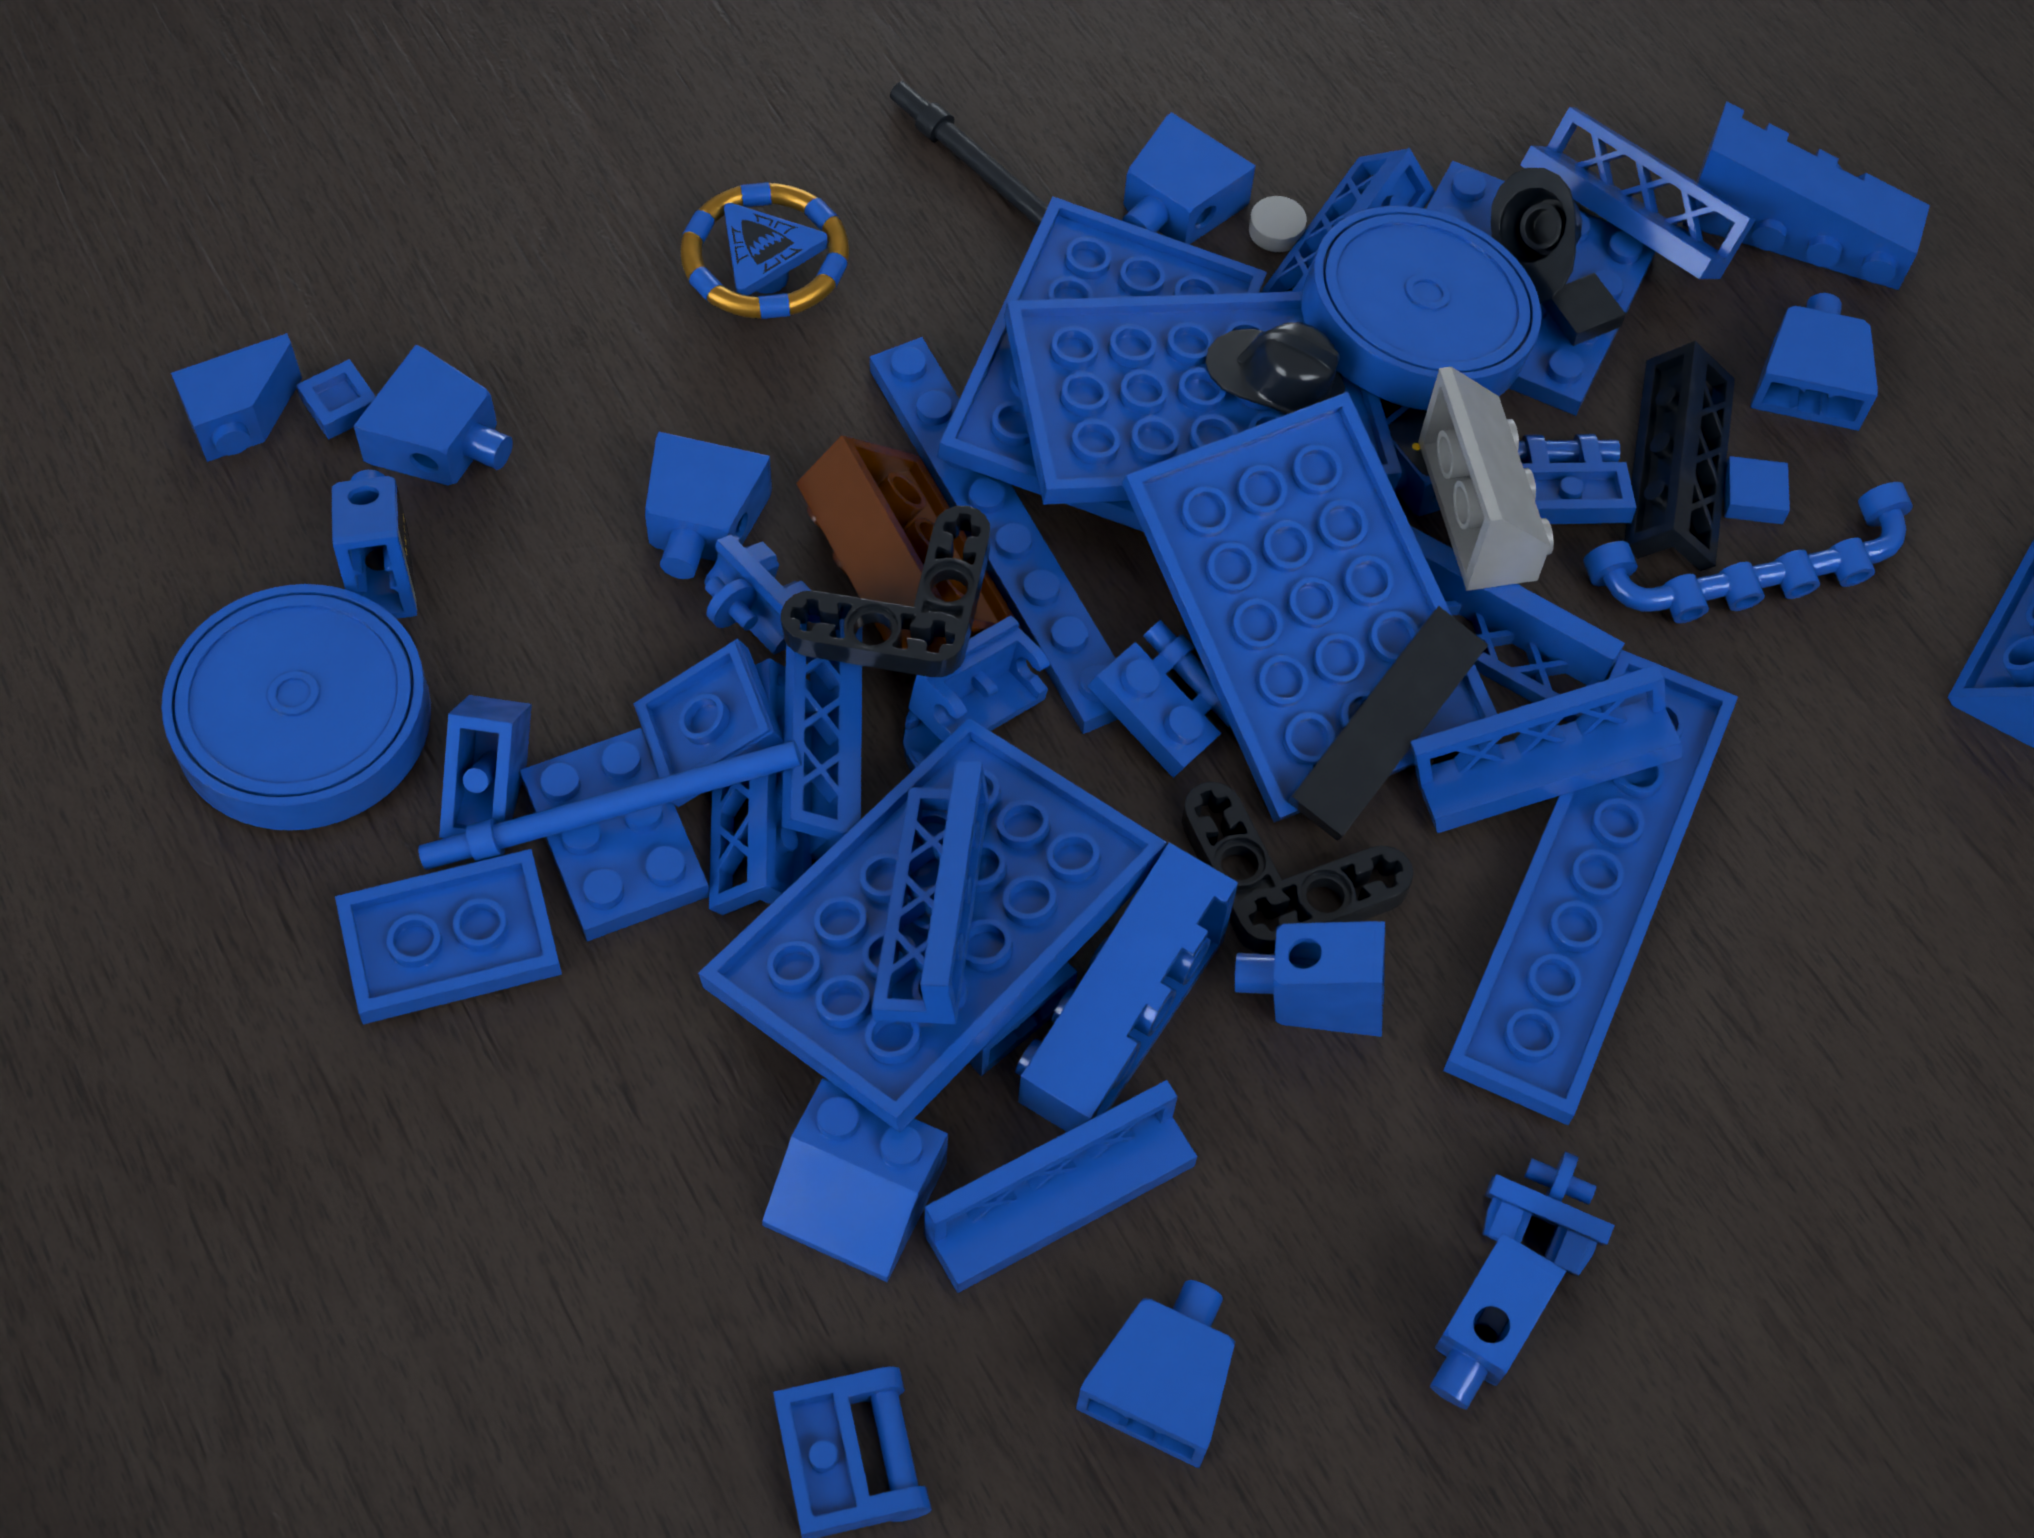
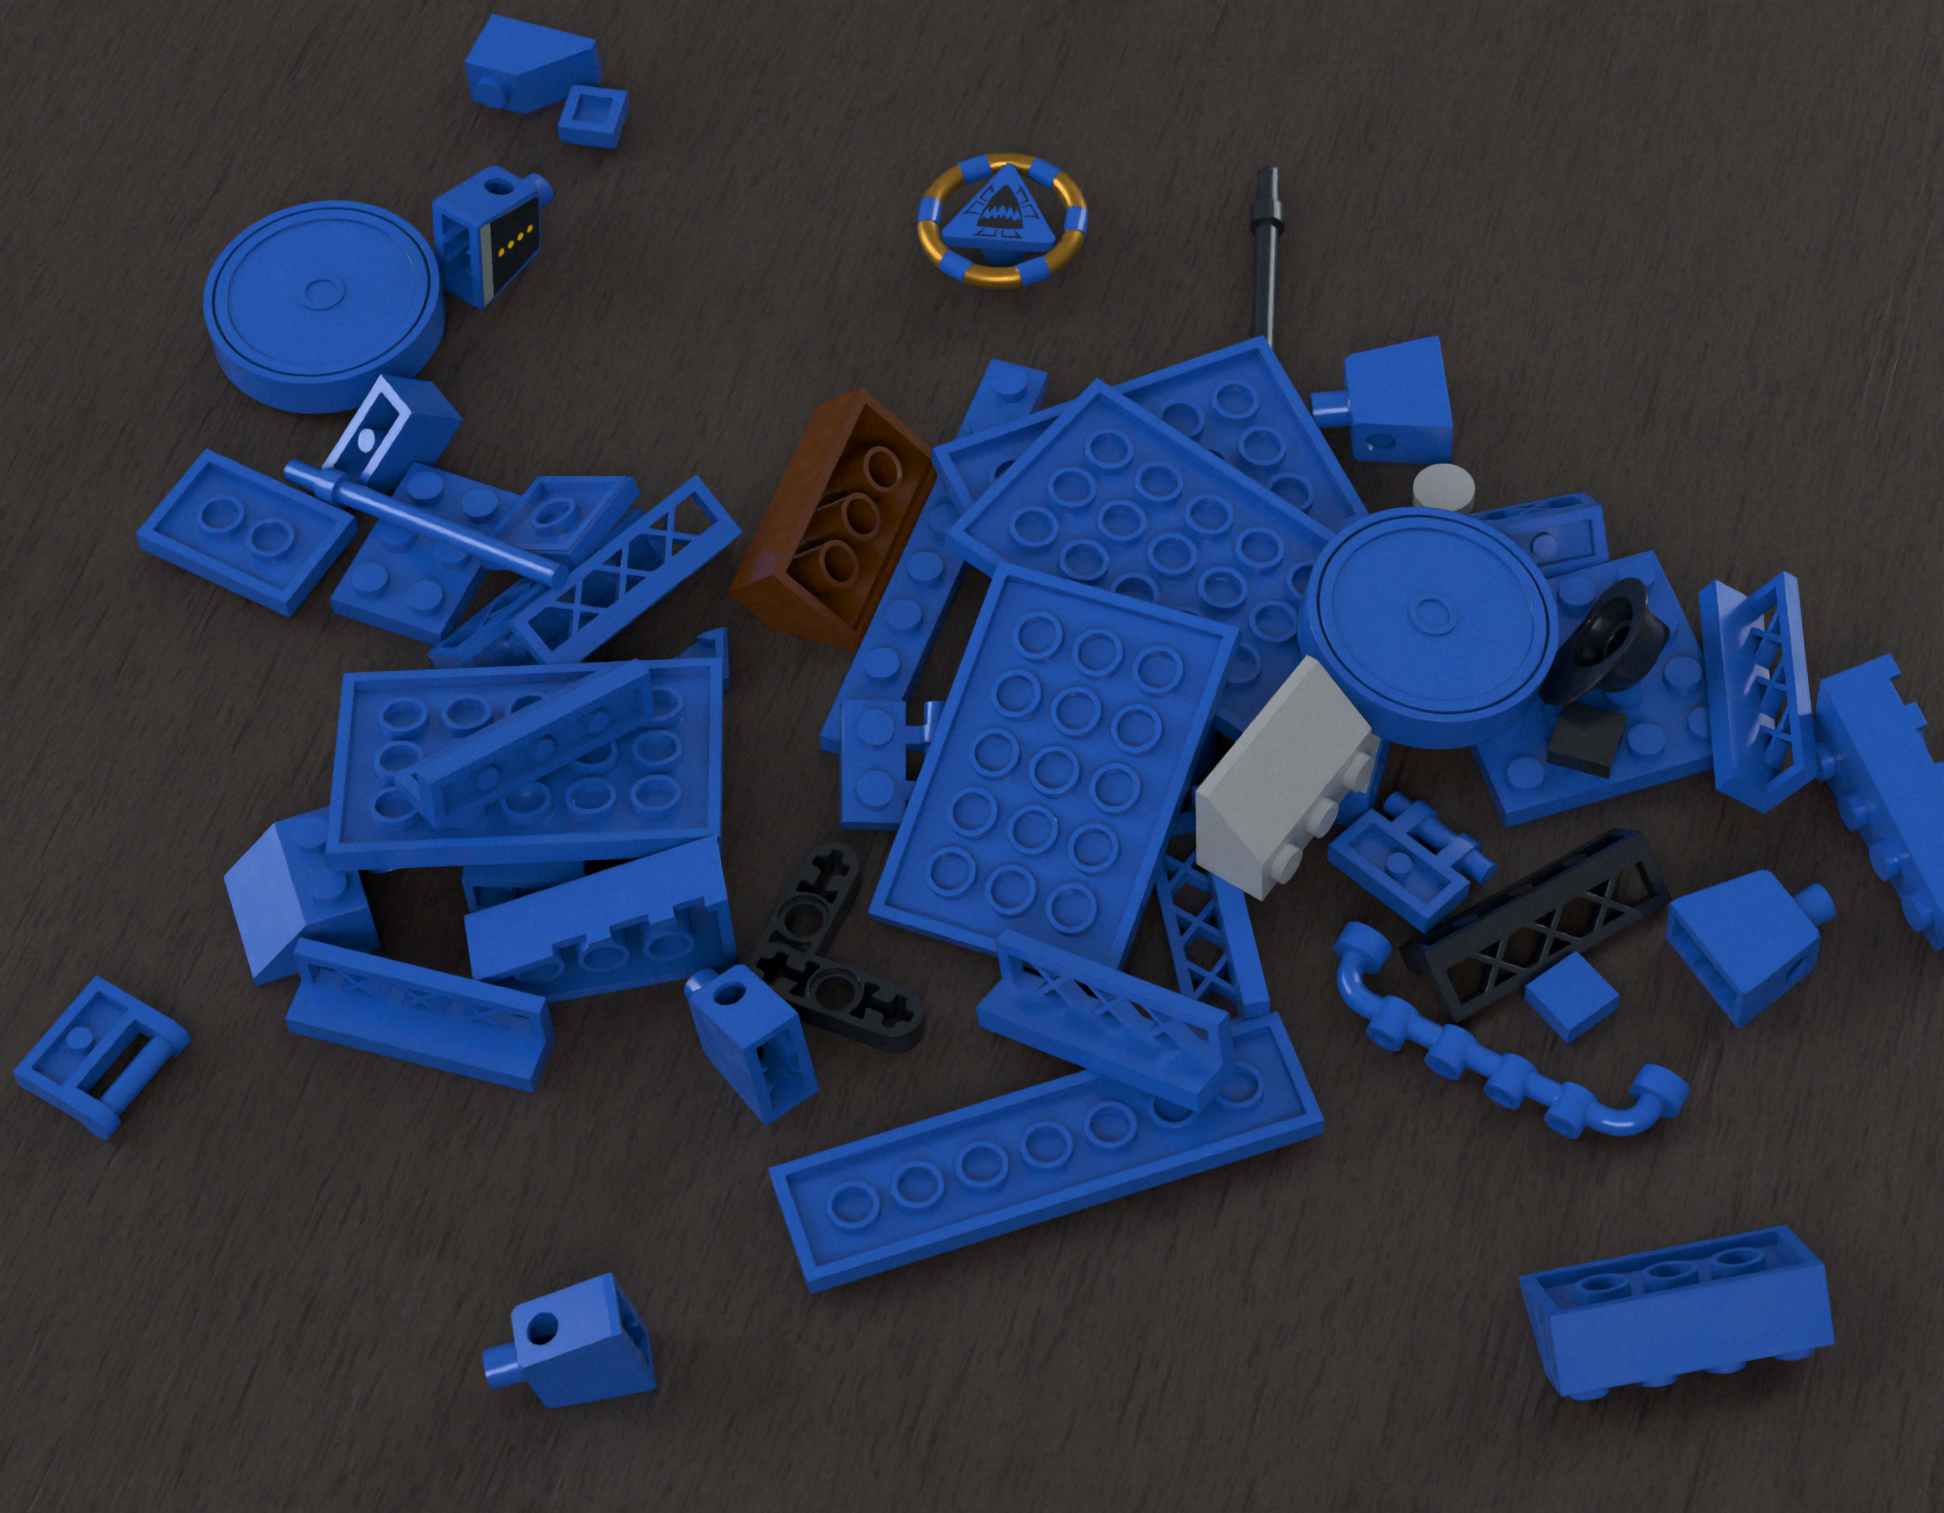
camera: 55 degrees right, 5 degrees down
(431, 422) = (630, 177): blue torso -> none
(701, 496) = (743, 372): blue torso -> none
(747, 591) = (707, 444): blue hips -> none
(925, 620) = (753, 555): black beam -> none
(988, 686) = (773, 645): blue hinge -> none
(1164, 1374) = (337, 1188): blue torso -> none
(1277, 367) = (1244, 585): black piece -> none
(1387, 723) = (1025, 900): black tile -> none
(1575, 1230) = (720, 1322): blue hips -> none

